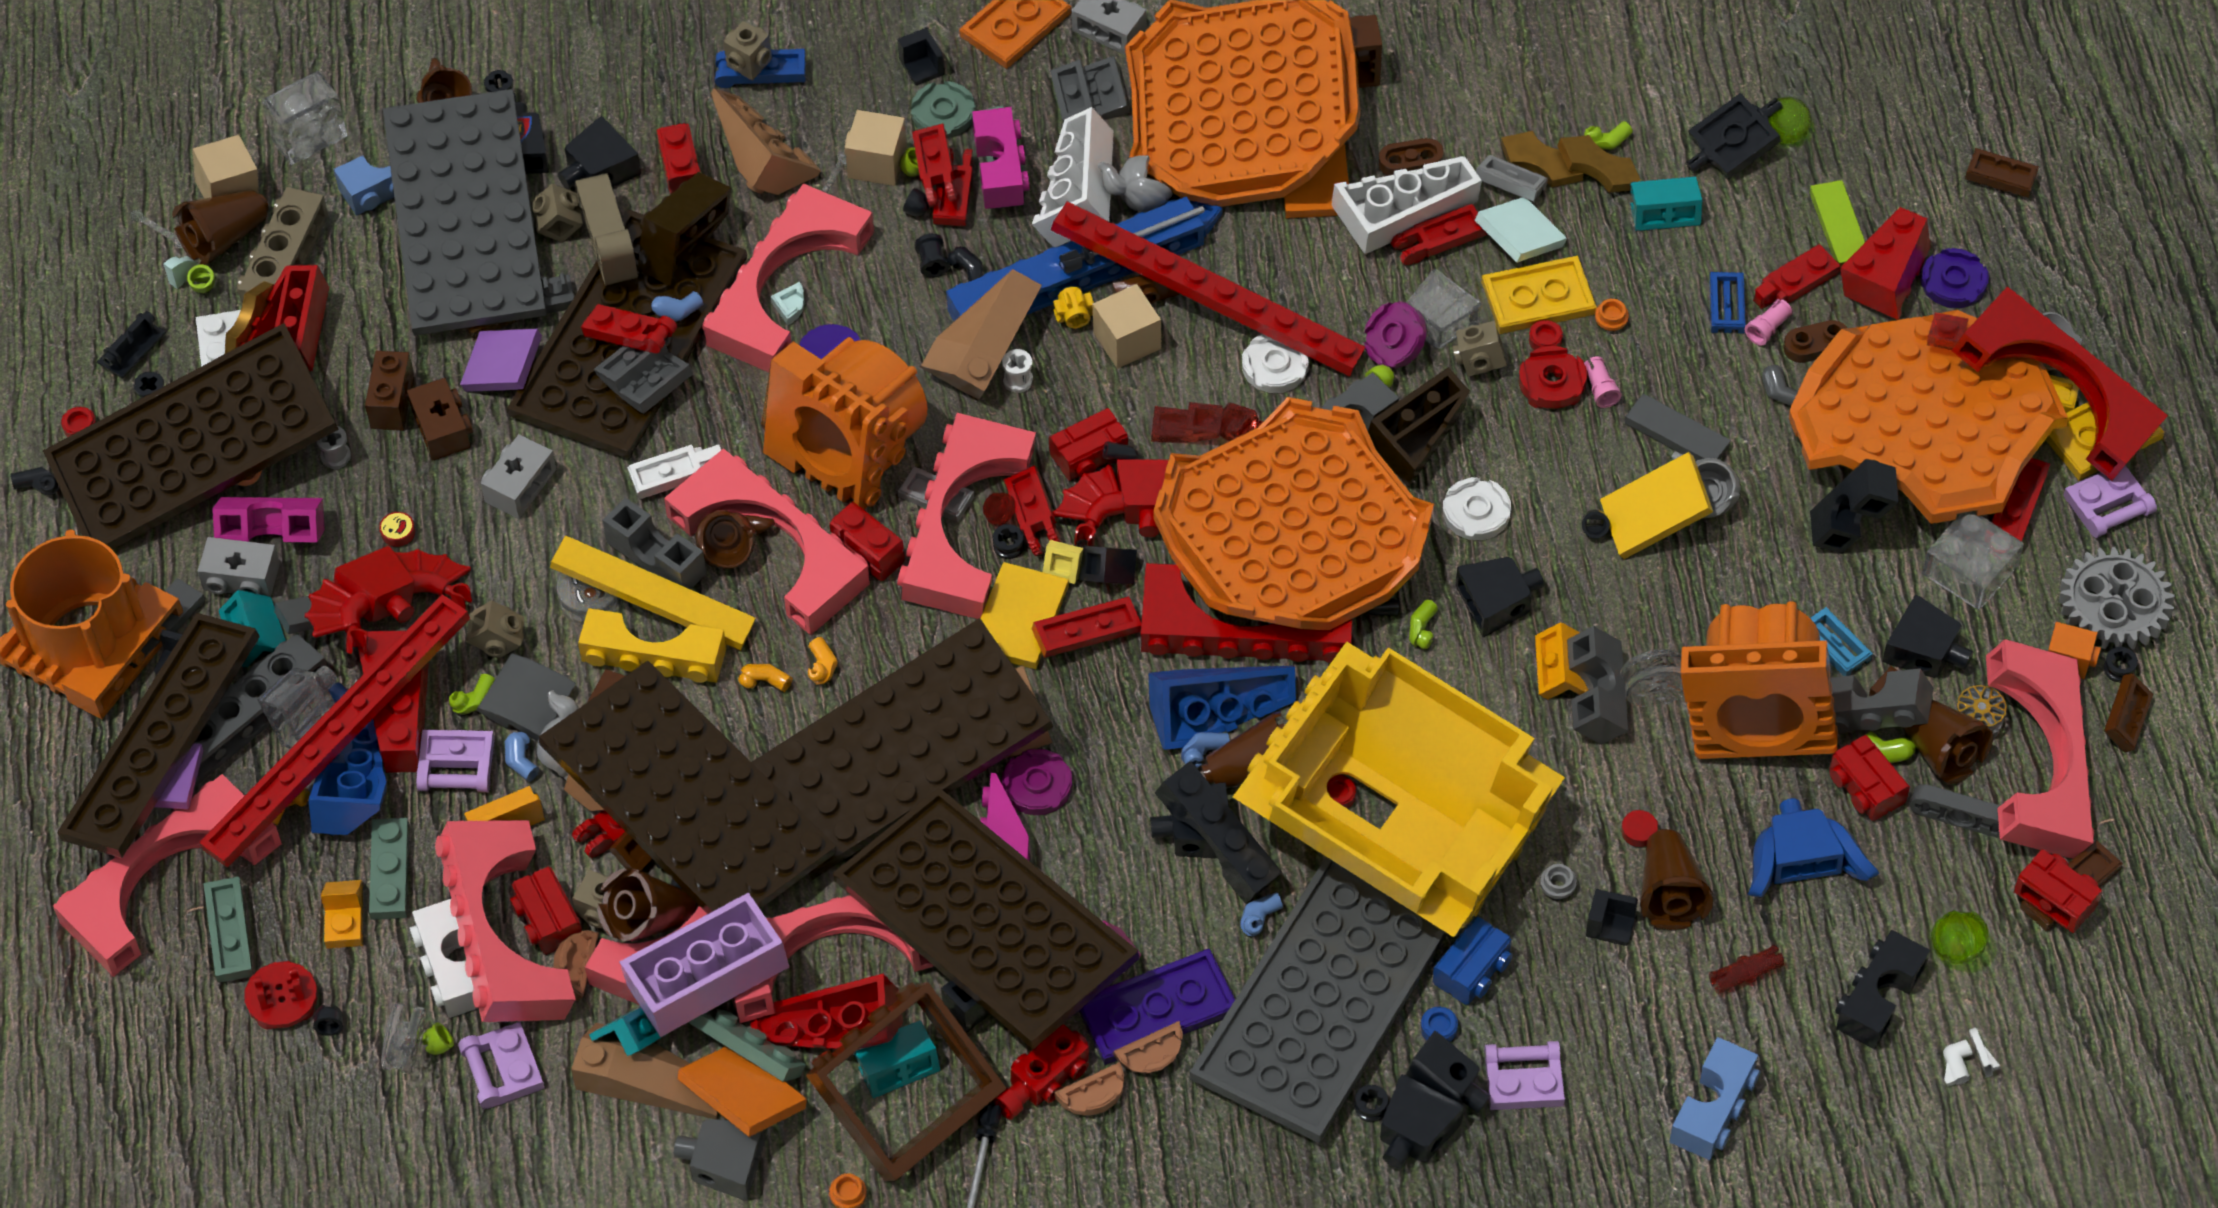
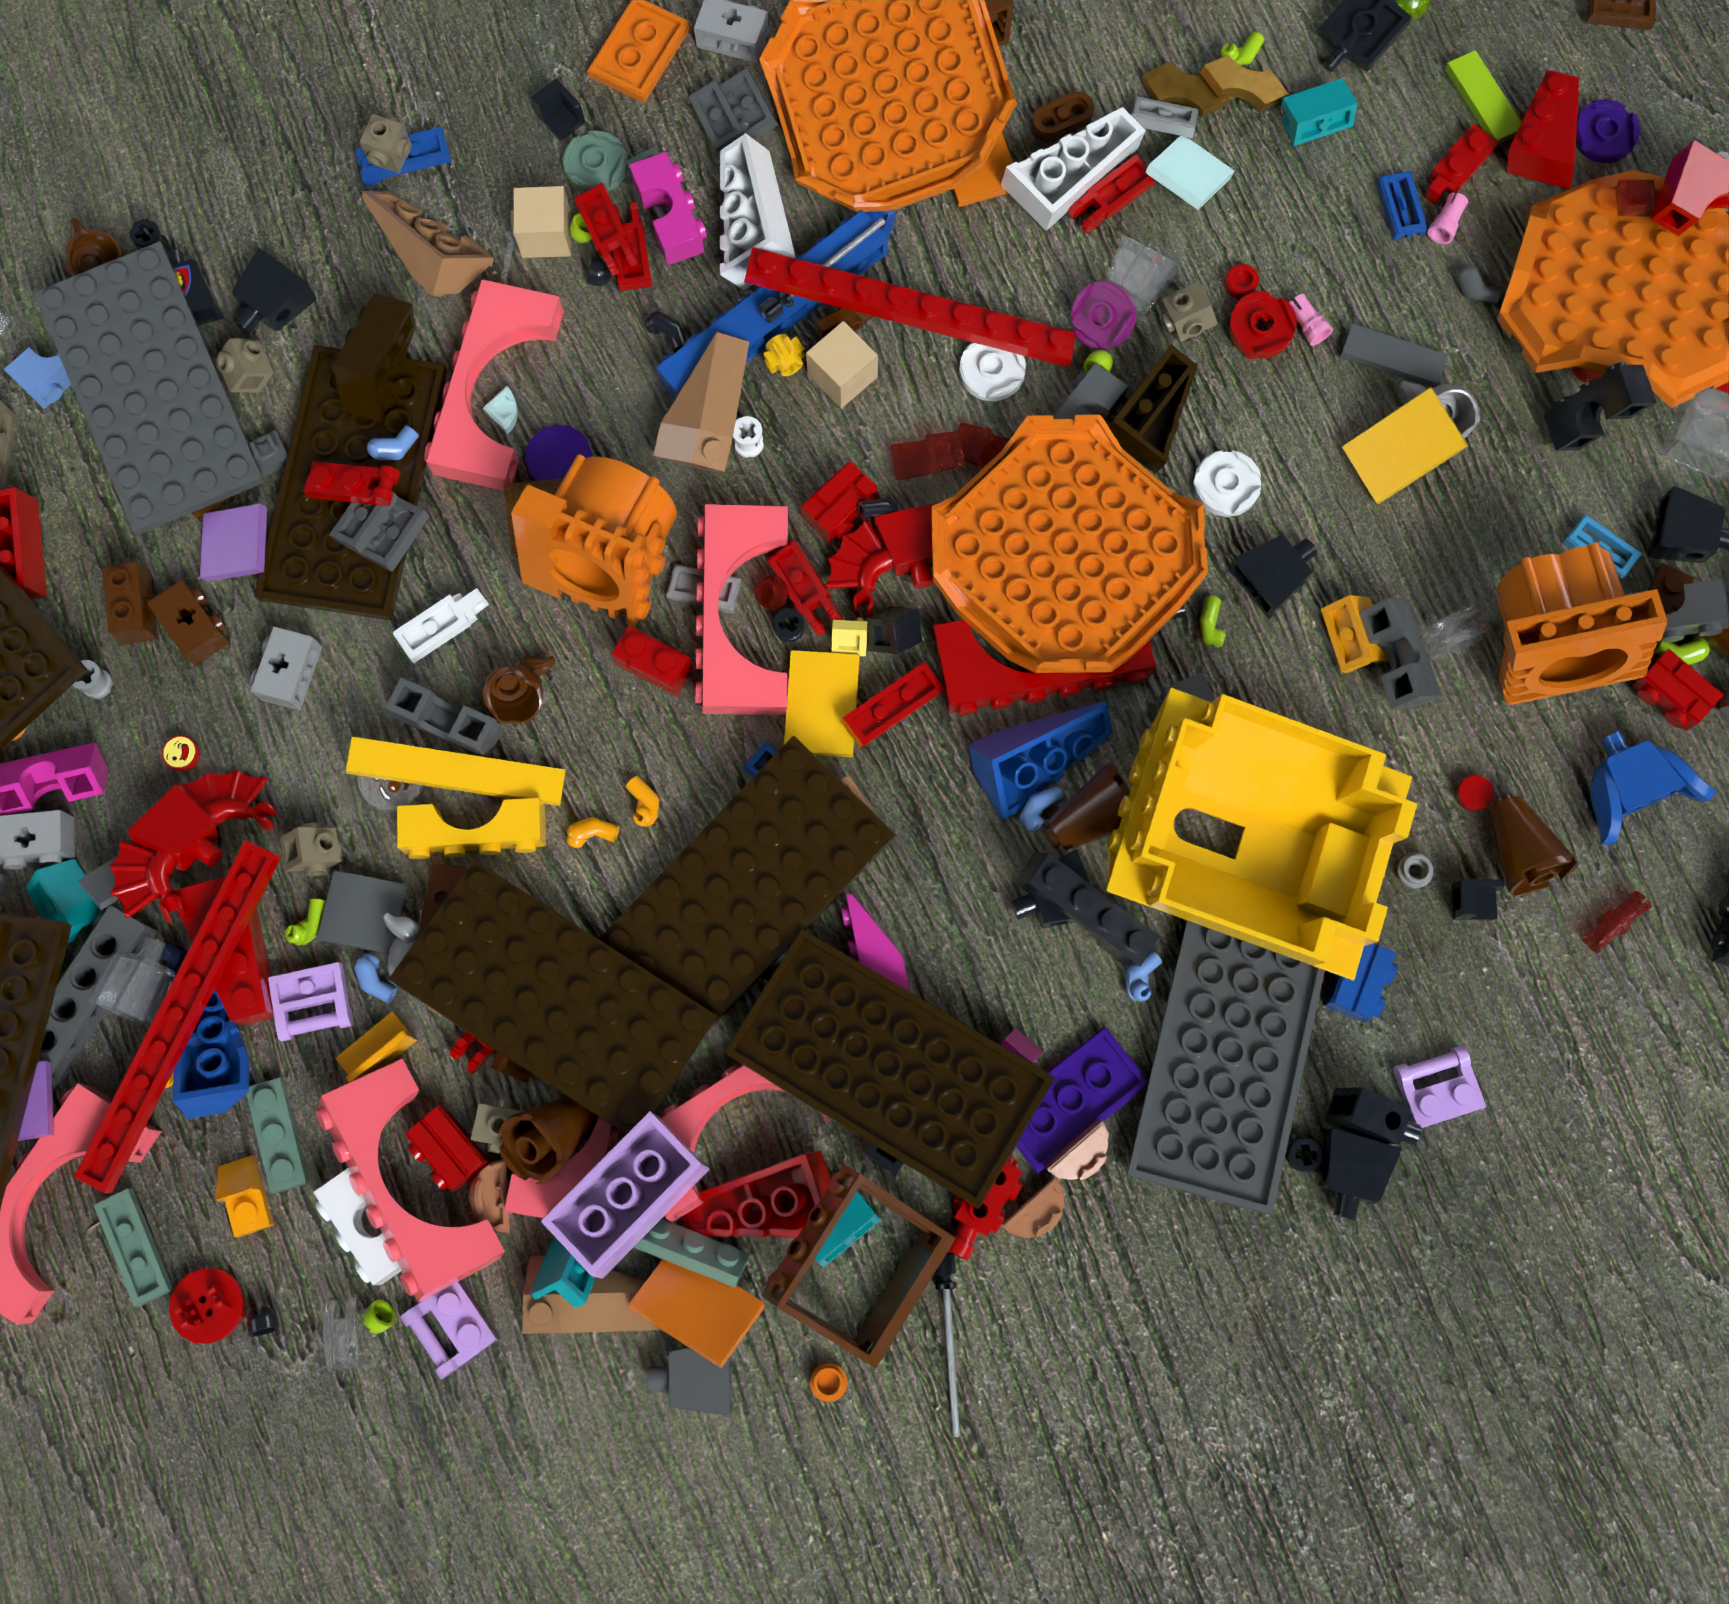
camera: 15 degrees left, 20 degrees up
(606, 229) = (298, 376): dark tan beam -> none
(677, 154) = (348, 276): red brick -> none
(830, 570) = (499, 635): coral arch -> none
(932, 256) = (629, 327): black bush -> none
(1037, 782) = (890, 884): magenta tile -> none
(1134, 186) = (808, 209): light grey hair -> none
(1342, 790) = (1186, 824): red tile -> none
(1440, 1020) = (1344, 1053): blue tile -> none
(1537, 293) = (1222, 236): yellow tile -> none
(1595, 530) = (1346, 480): black hinge -> none
(1611, 315) = (1298, 244): orange plate -> none
(1703, 1125) = (1638, 1044): medium blue arch -> none
(1816, 339) = (1499, 226): reddish brown plate -> none

